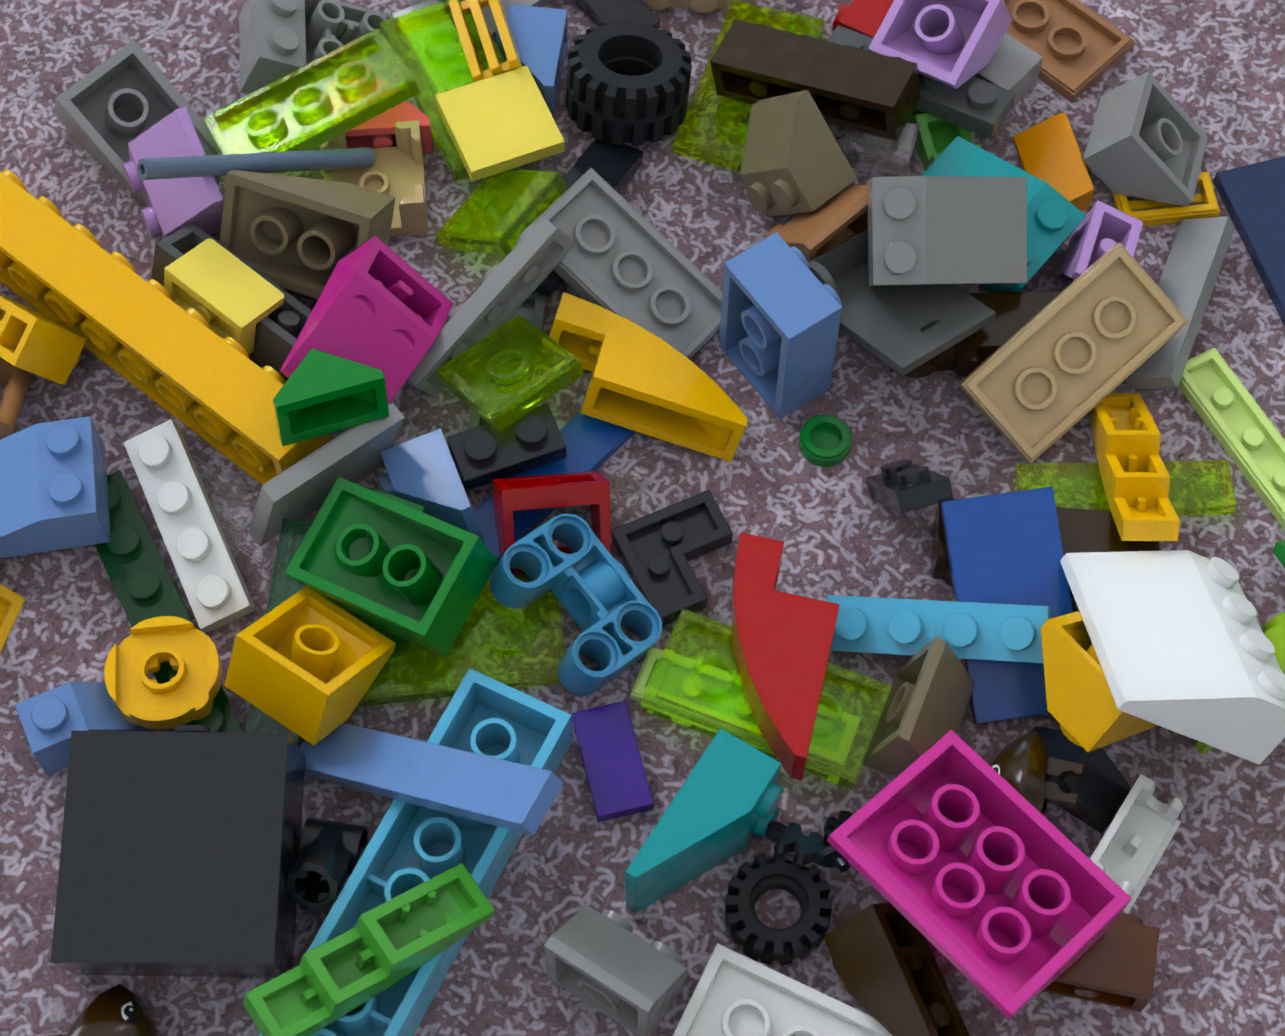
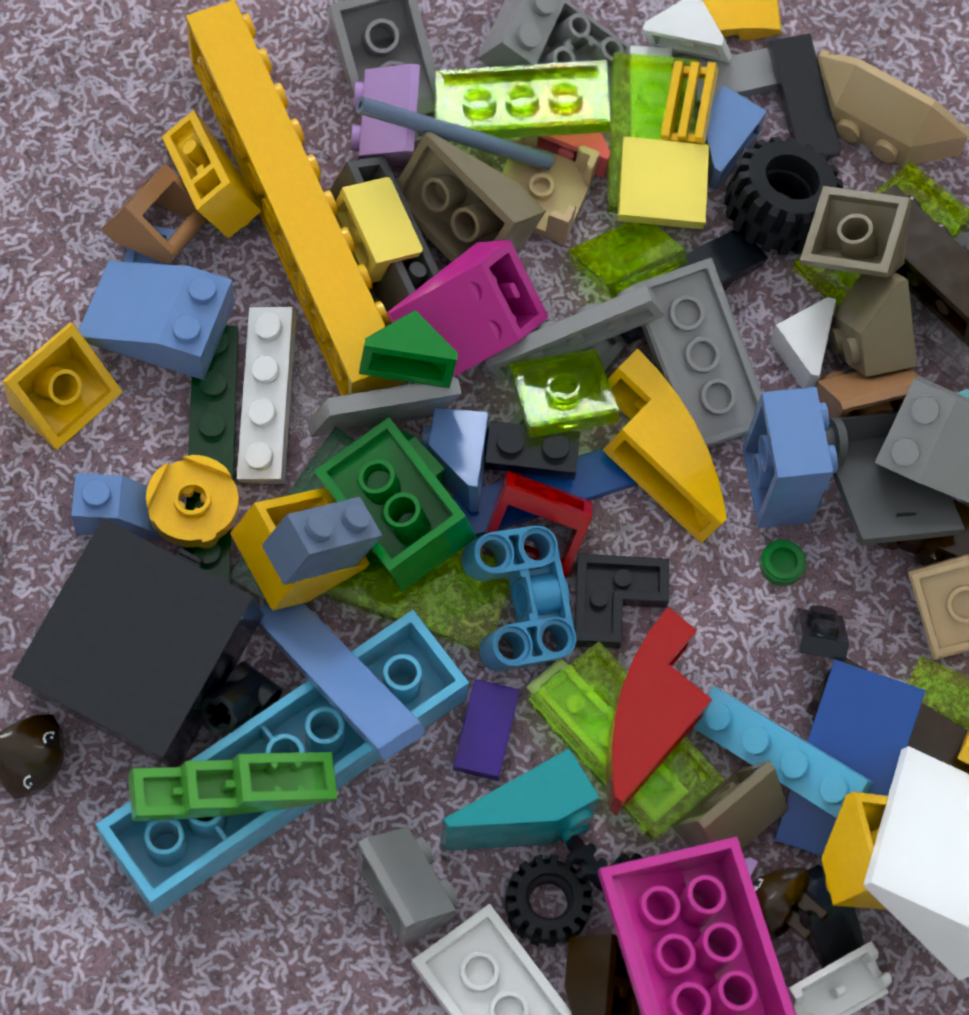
camera: 20 degrees right, 5 degrees up
(333, 637) = (321, 540): none -> sand blue brick
(726, 212) = (803, 341): none -> white slope
(728, 71) = (858, 232): none -> dark tan slope

